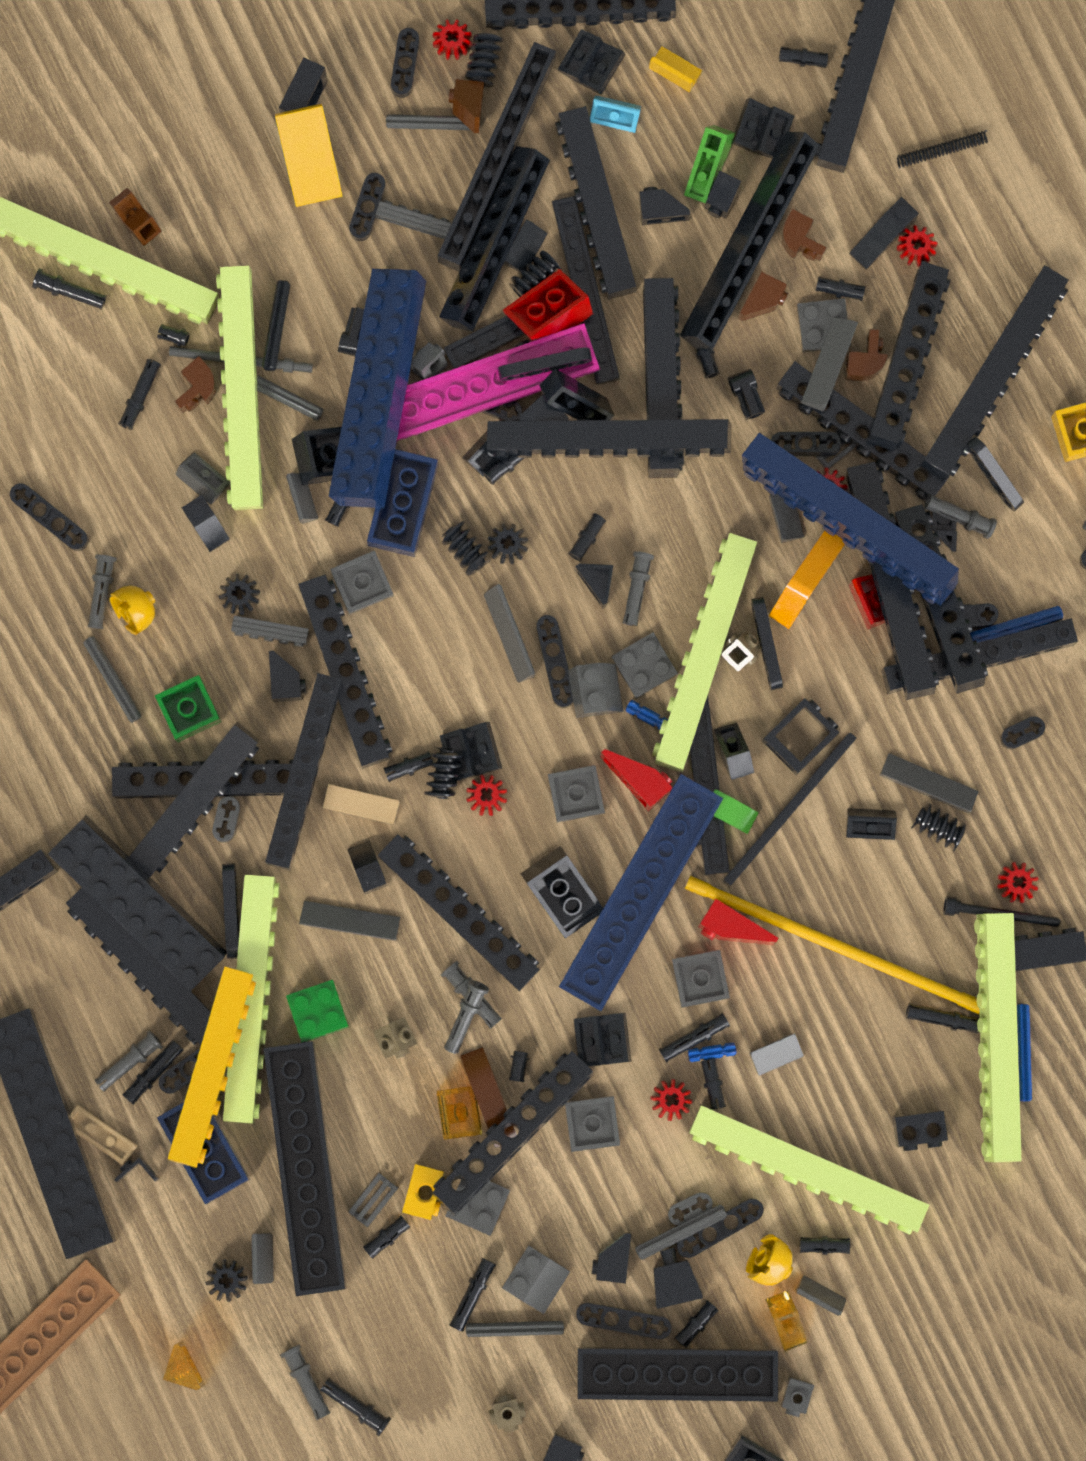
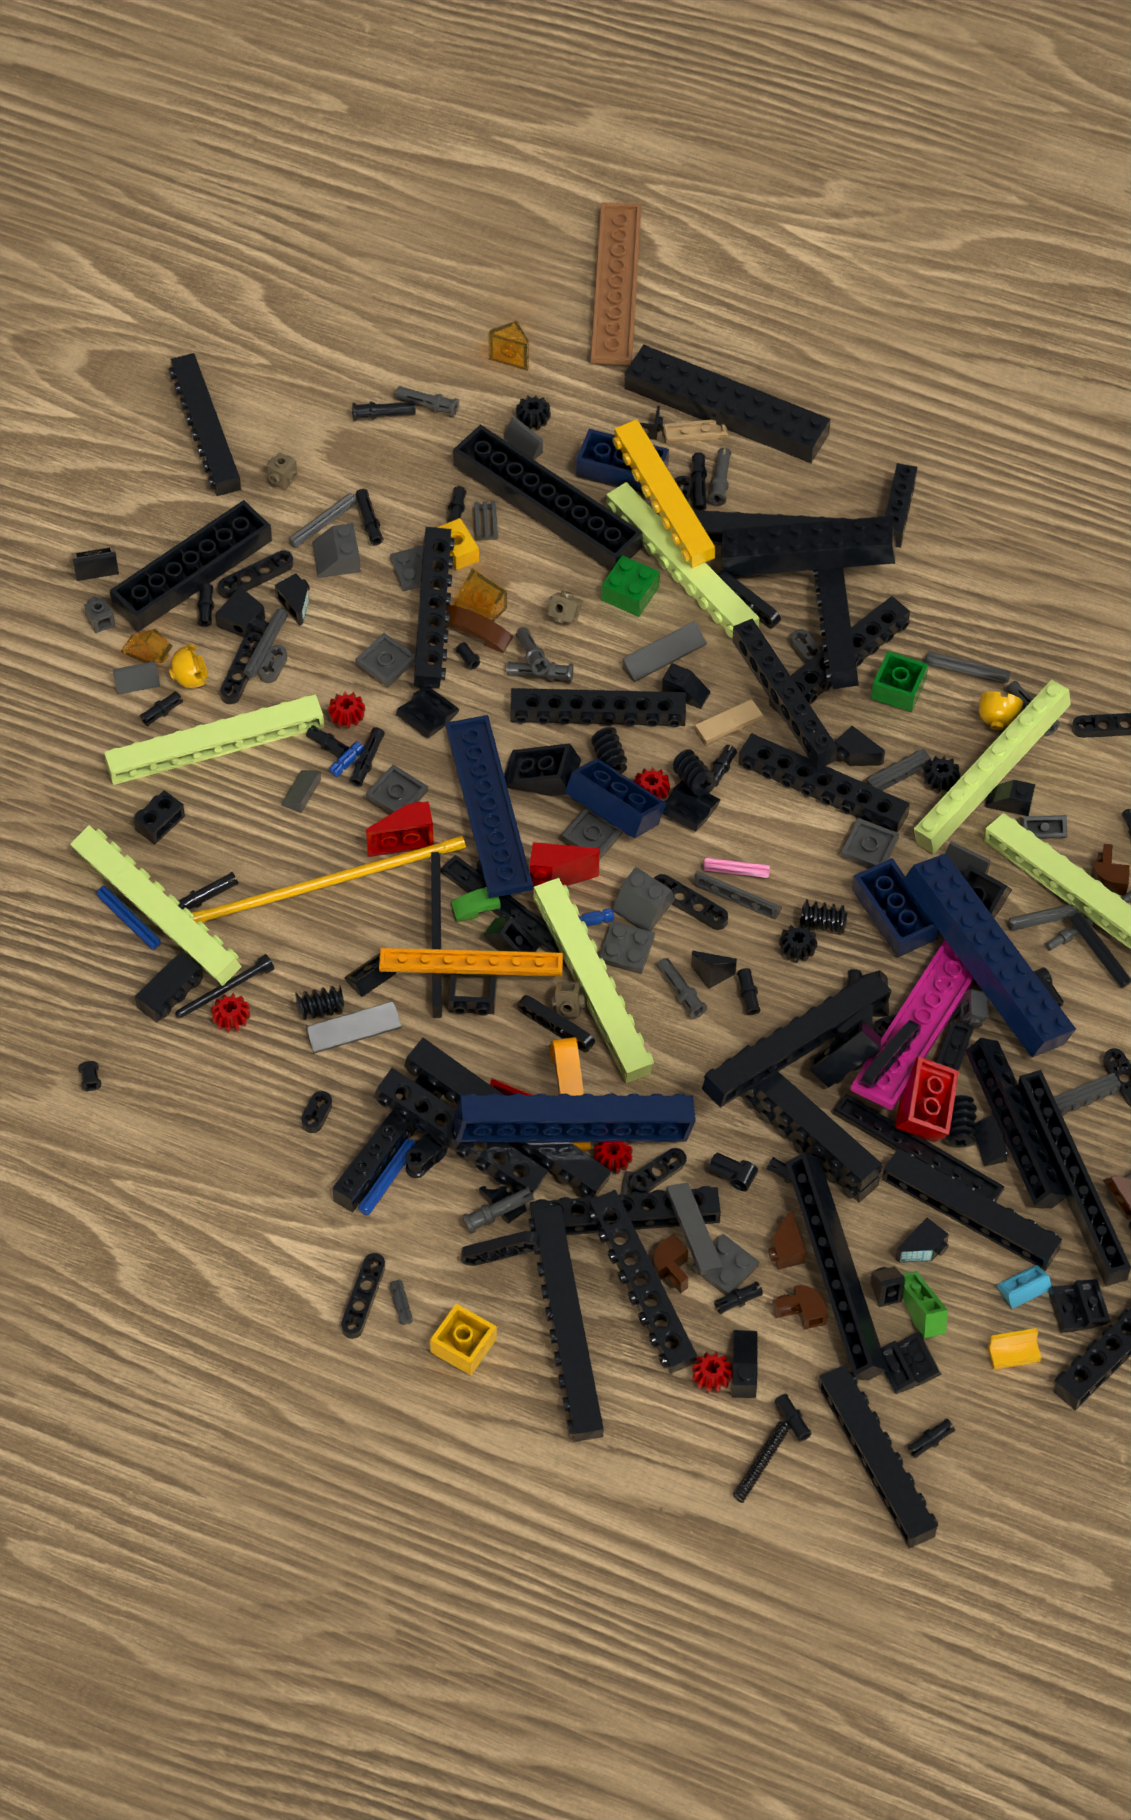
camera: 140 degrees right, 25 degrees down
(197, 555) = (992, 766): none -> yellowish green brick
(488, 659) = (736, 867): none -> bright pink axle
(490, 860) = (609, 748): none -> black piece
(533, 802) = (615, 798): none -> dark blue brick
(792, 748) = (471, 962): none -> light orange tile
(889, 160) = (793, 1417): none -> black pin

